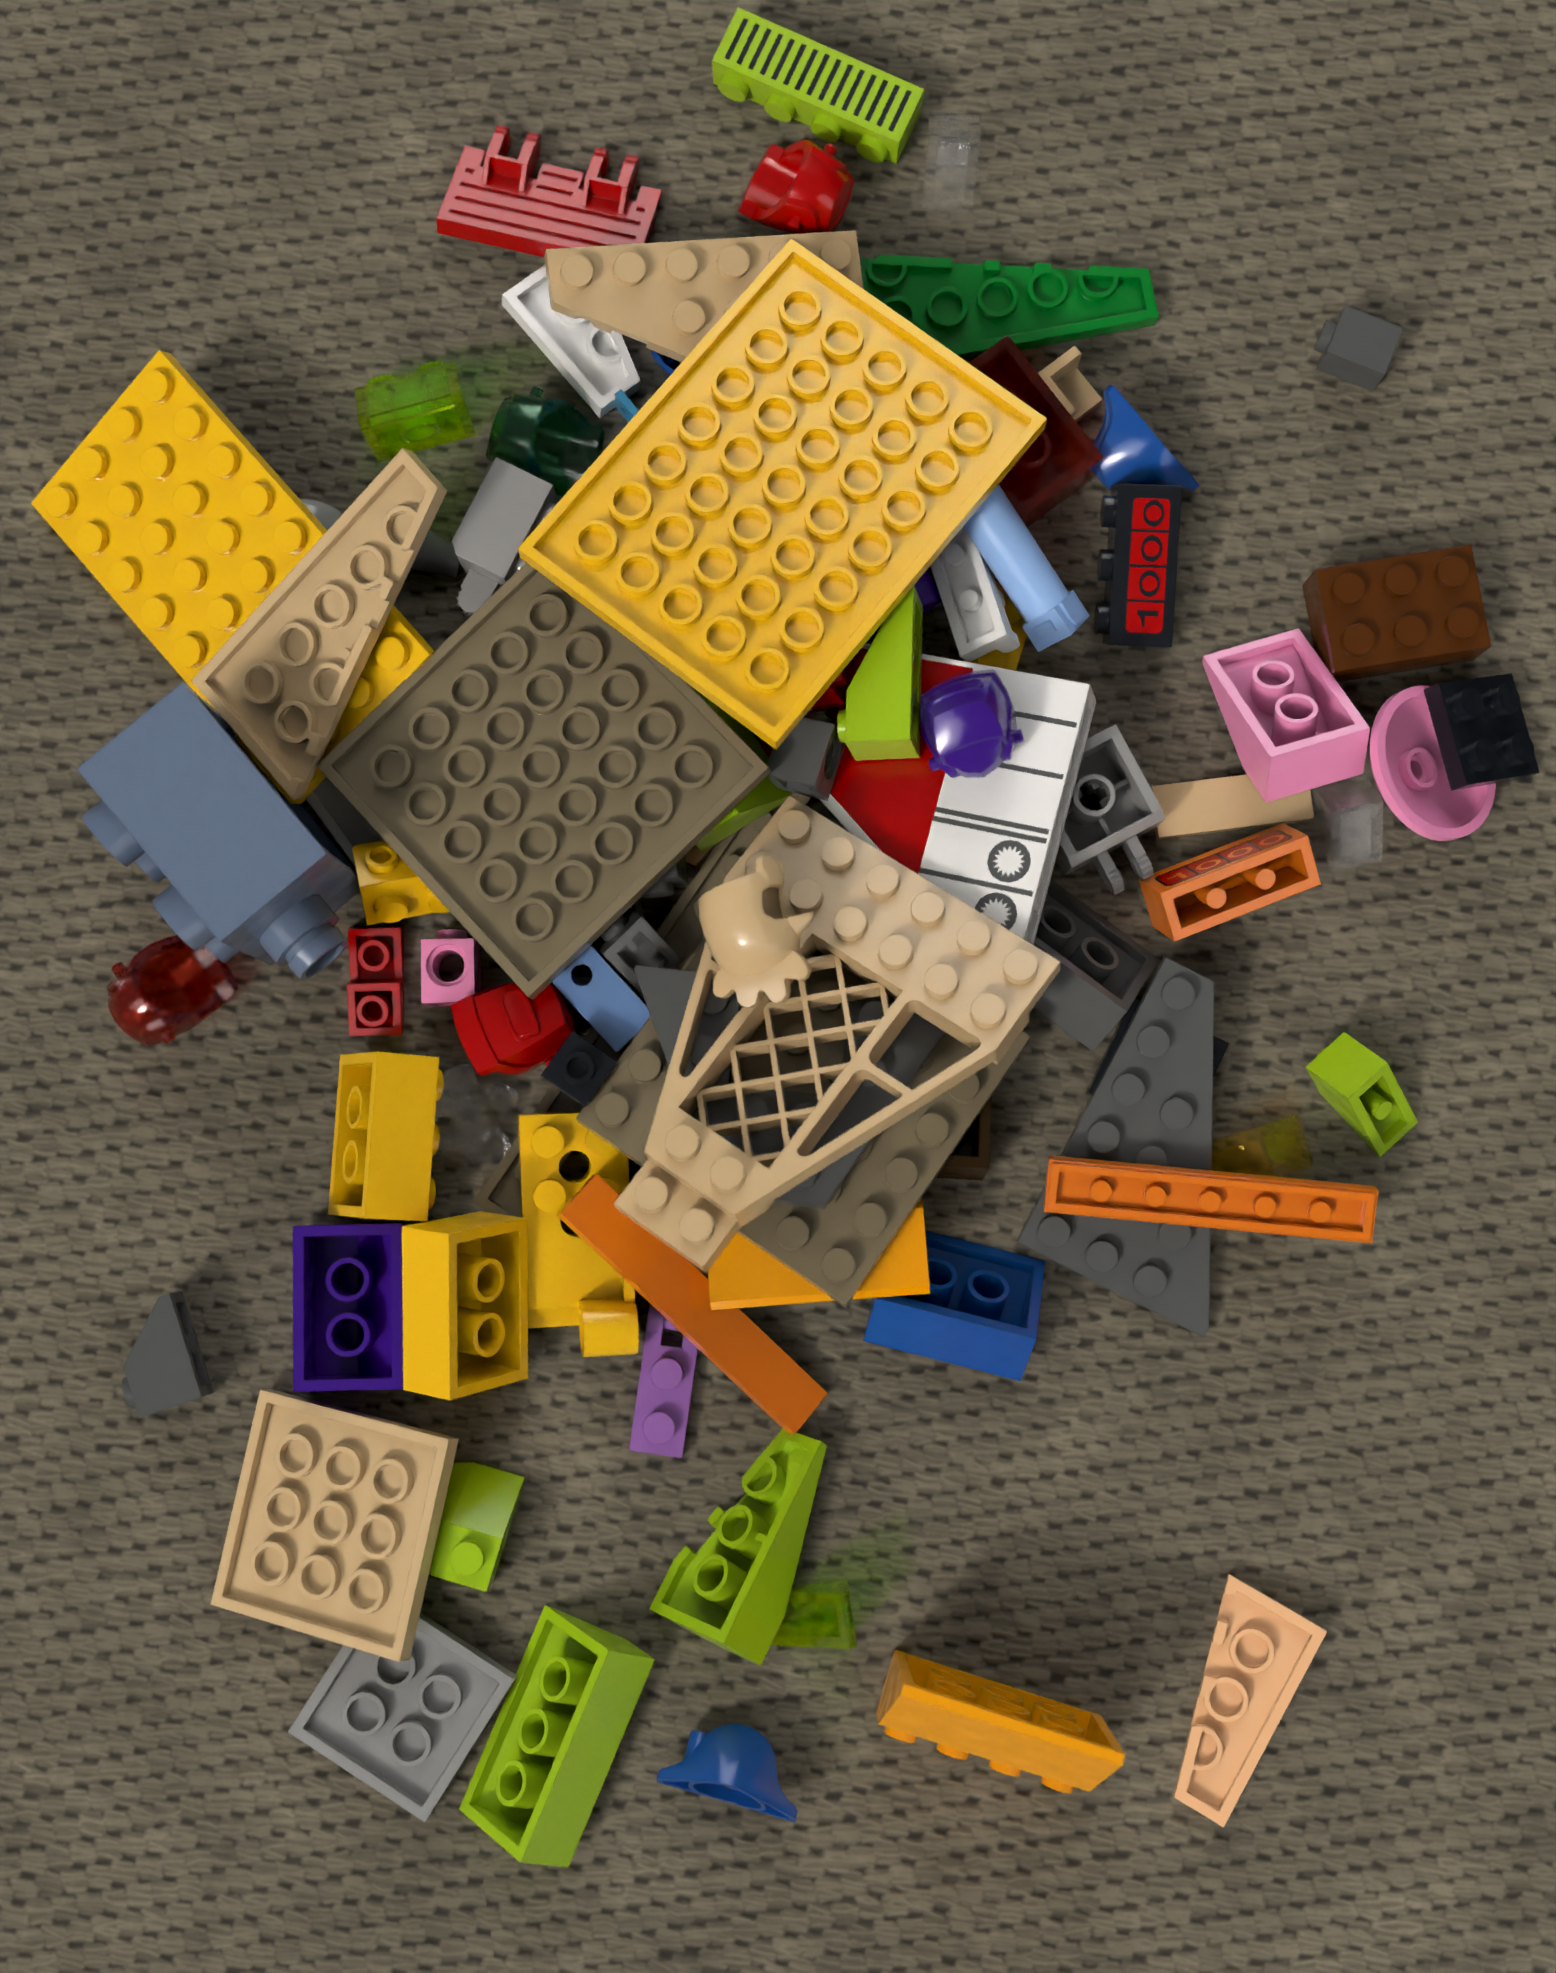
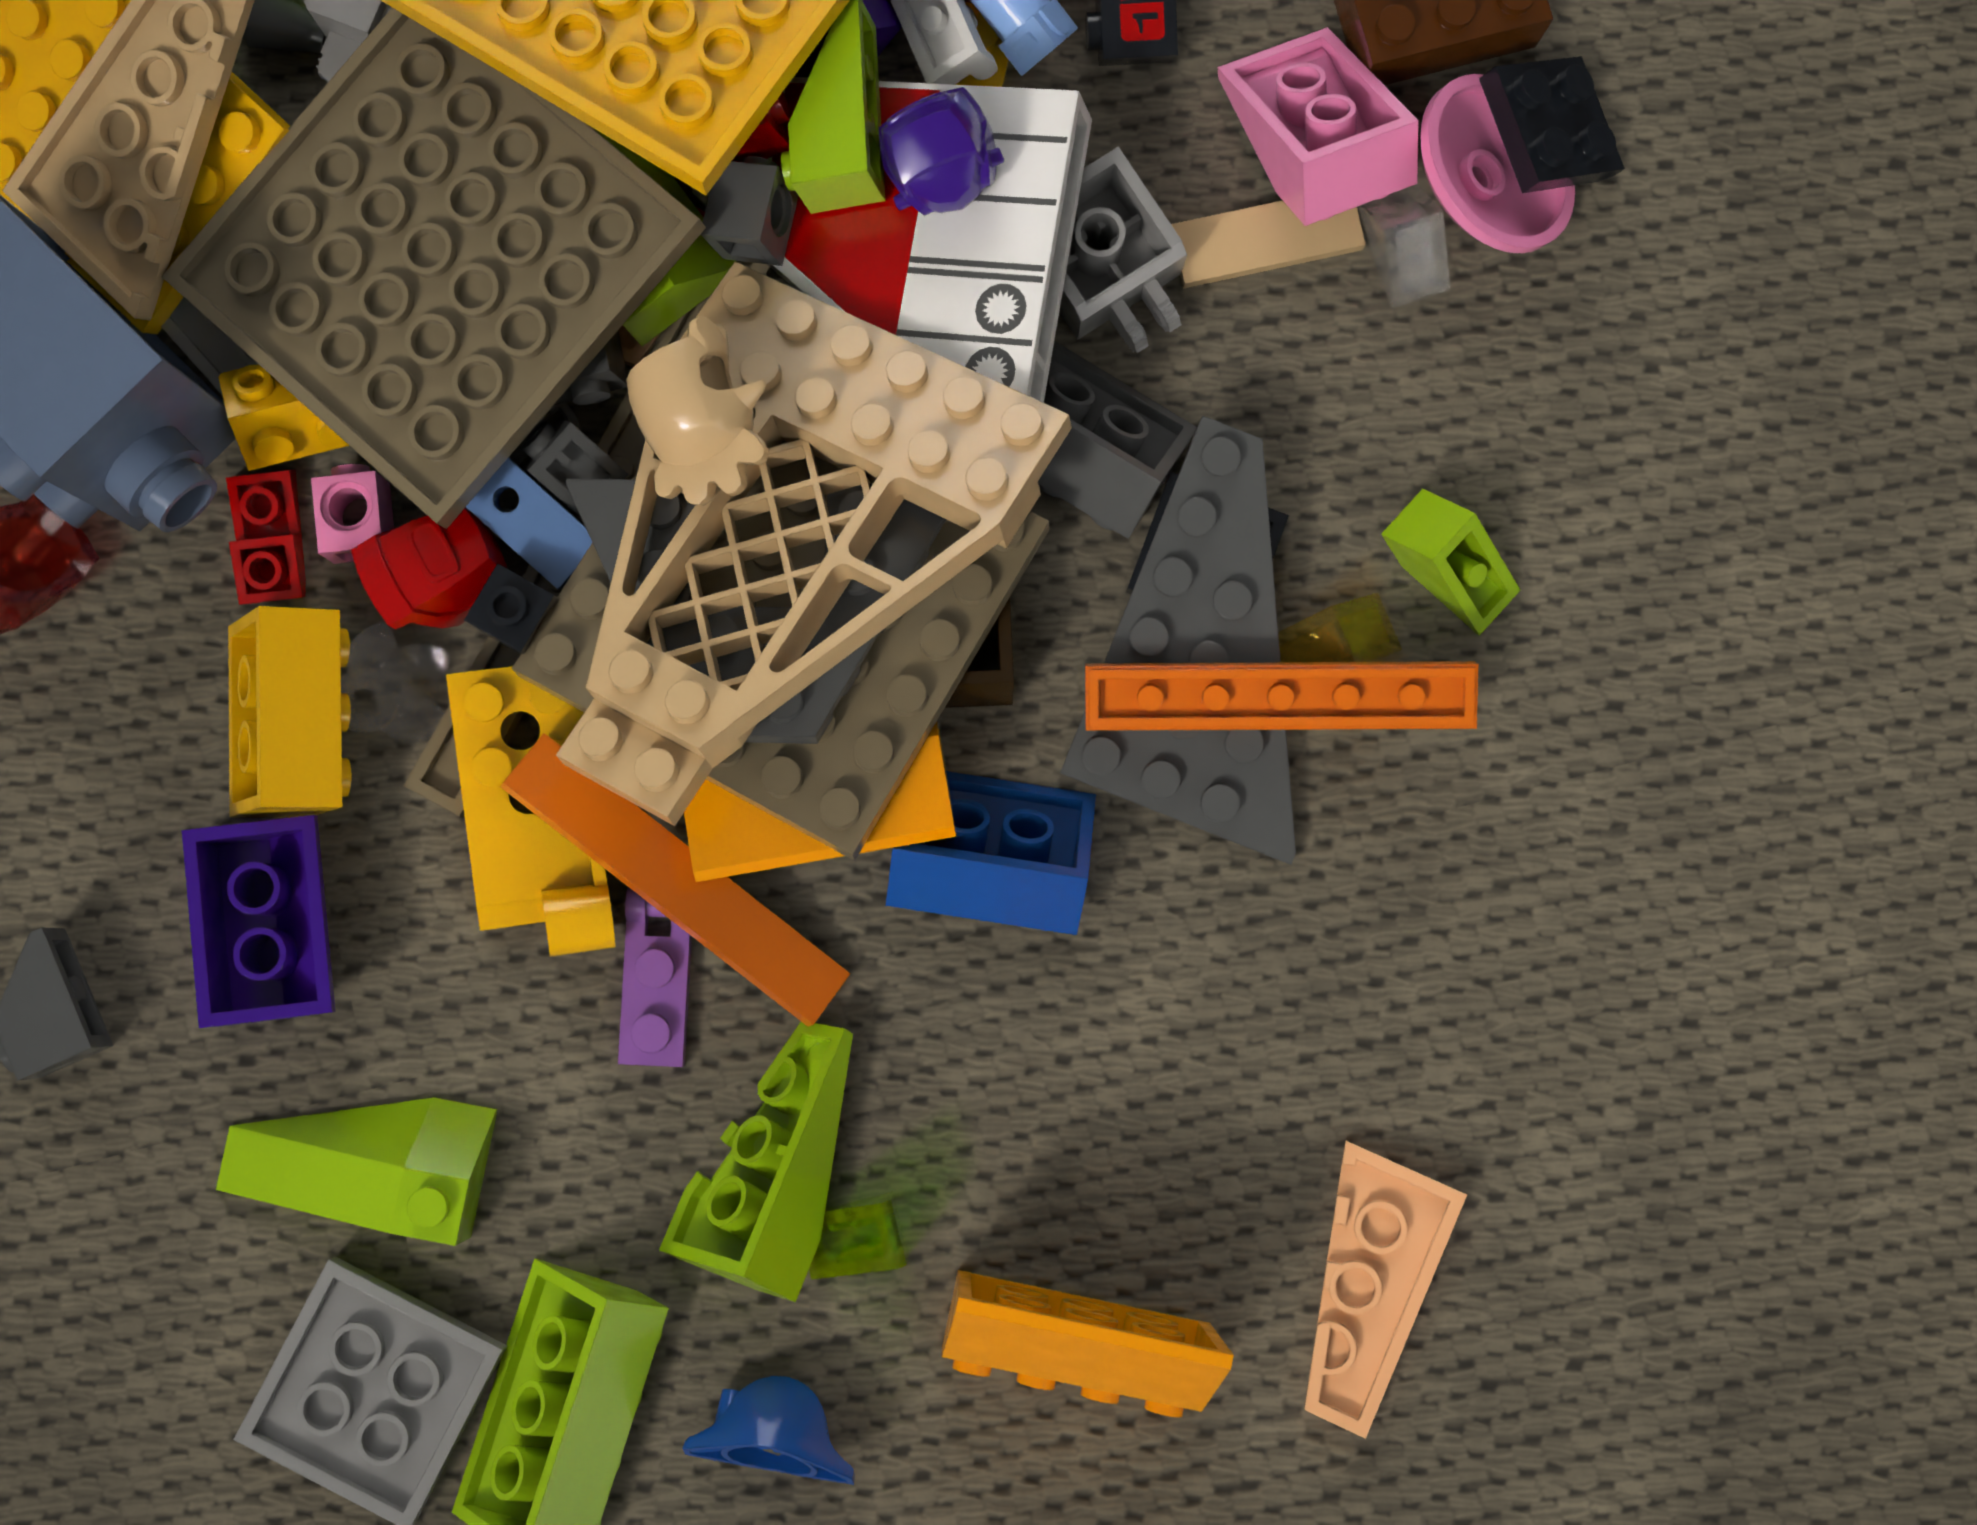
camera: 15 degrees left, 0 degrees up
(335, 1523) = (267, 1184): tan plate -> none
(464, 1304) = (398, 904): yellow brick -> none
(1230, 881) = (1272, 324): orange brick -> none

